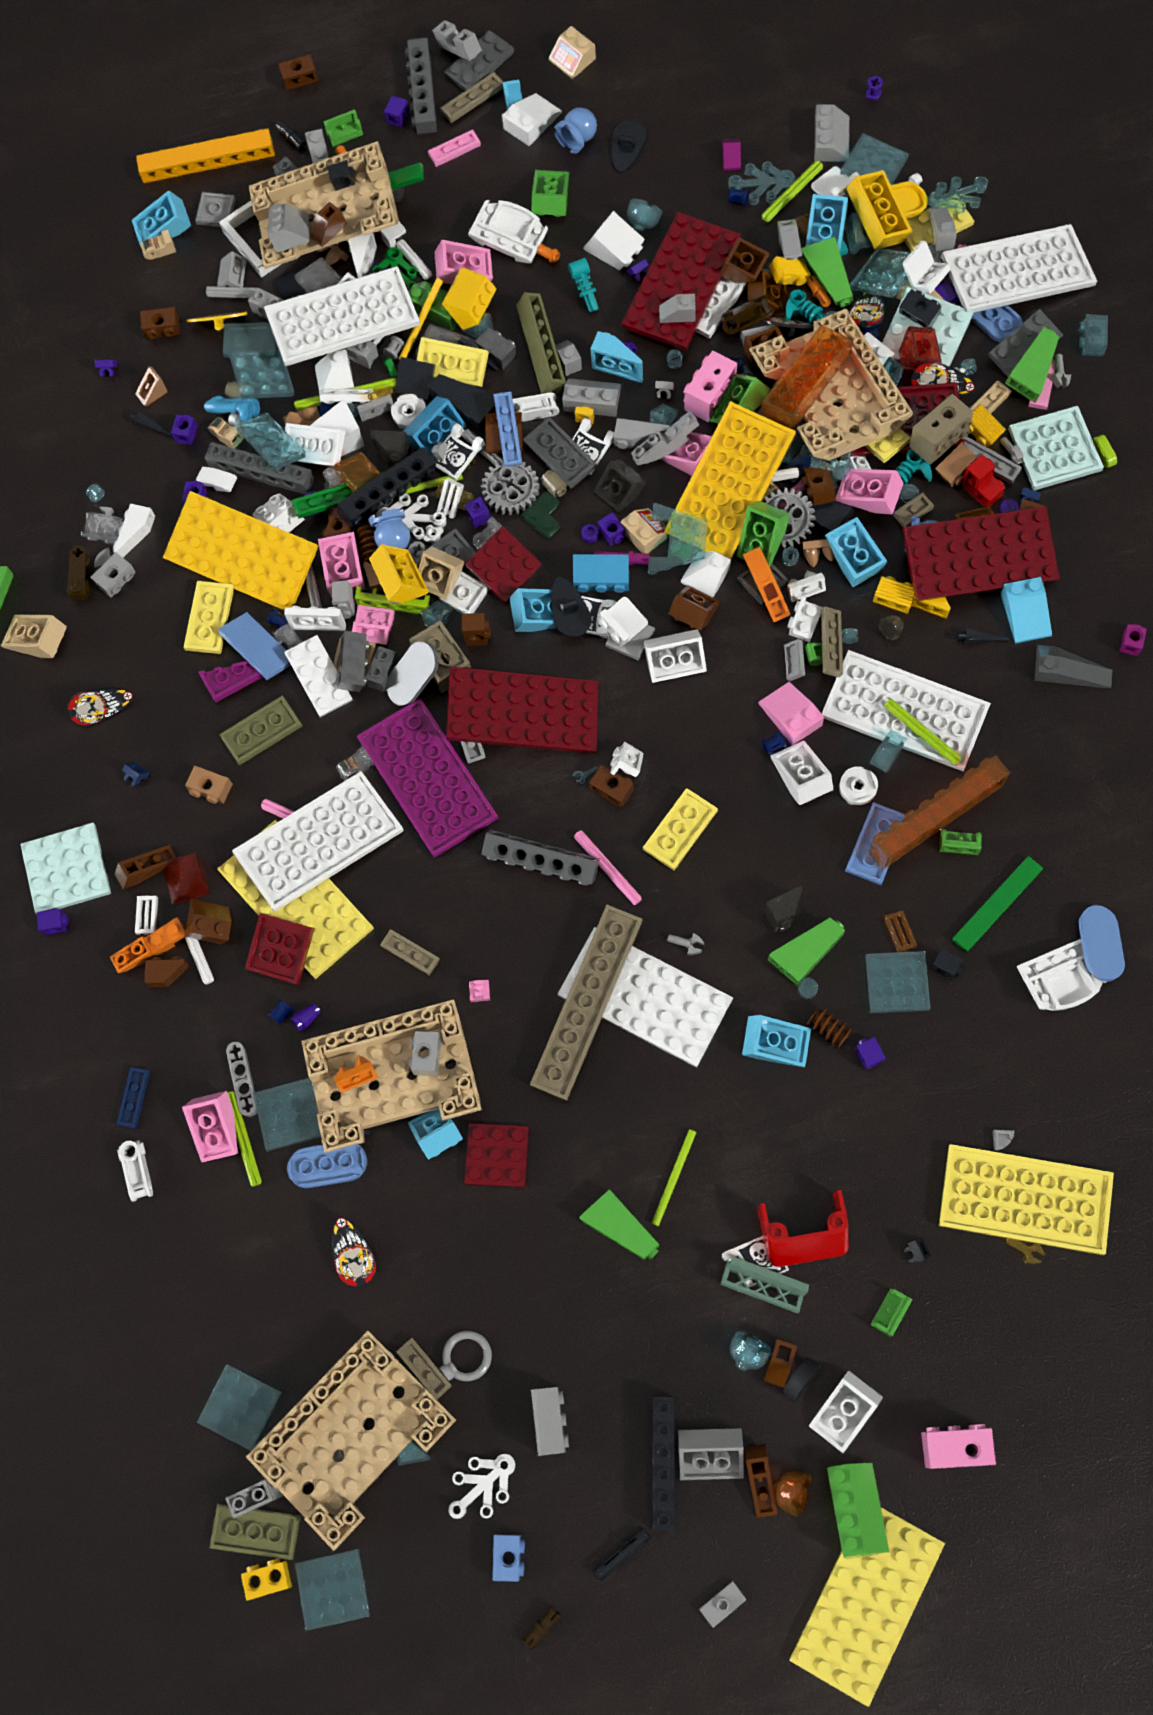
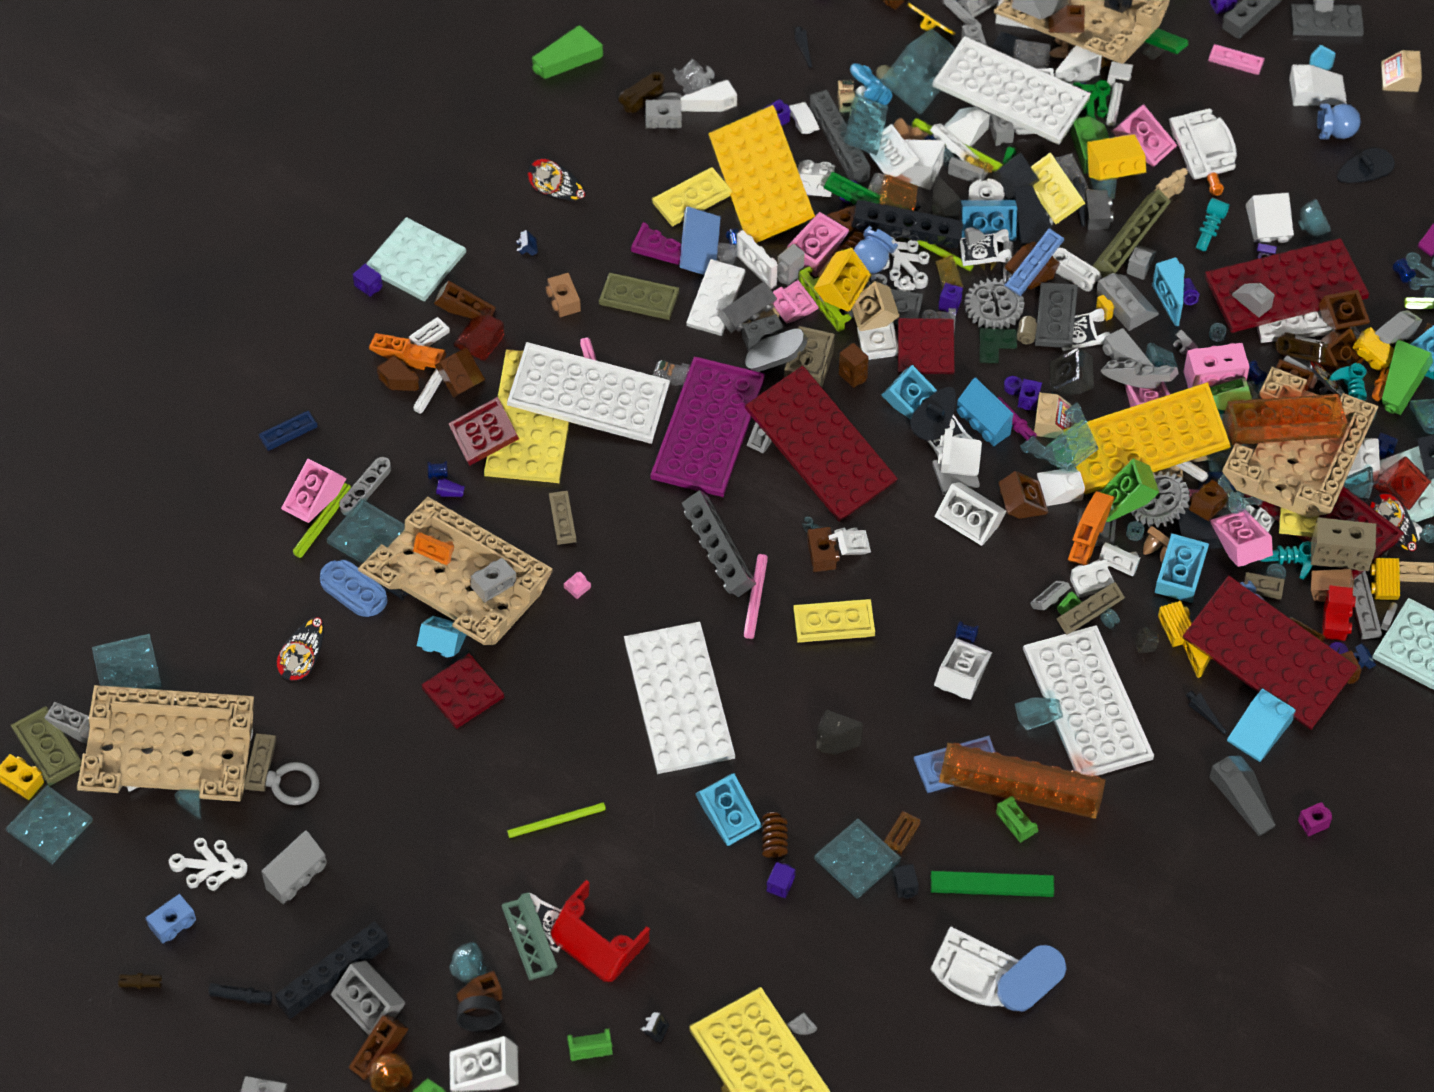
camera: 40 degrees right, 15 degrees down
(34, 635) = (569, 104): tan slope -> none
(95, 492) = (715, 54): clear light blue bush -> none
(135, 1170) = (237, 470): white piece -> none
(150, 387) = (832, 23): medium nougat slope -> none
(184, 435) = (821, 68): dark purple brick -> none
(312, 589) = (783, 241): light grey axle -> none
(393, 347) = (1027, 145): light grey bush -> none
(422, 316) = (1070, 140): yellow piece -> none
(435, 613) = (844, 334): clear light blue slope -> none
(445, 510) = (940, 270): white tile -> none
(472, 97) = (1289, 37): dark tan plate -> none
(526, 278) = (1173, 184): none -> tan plate
(550, 193) = (1266, 146): bright green slope -> none
(586, 1002) = (634, 656): dark tan plate -> none
(618, 1224) = (485, 804): bright green slope -> none
(687, 943) = (745, 701): light grey bar -> none
(792, 713) = (1004, 627): bright pink slope -> none
(807, 950) = (822, 777): bright green slope -> none
(808, 988) = (793, 802): clear light blue tile -> none
(862, 776) = (991, 725): white plate -> none
(868, 310) = (1398, 427): shield -> none
(923, 732) = (1079, 724): lime axle -> none

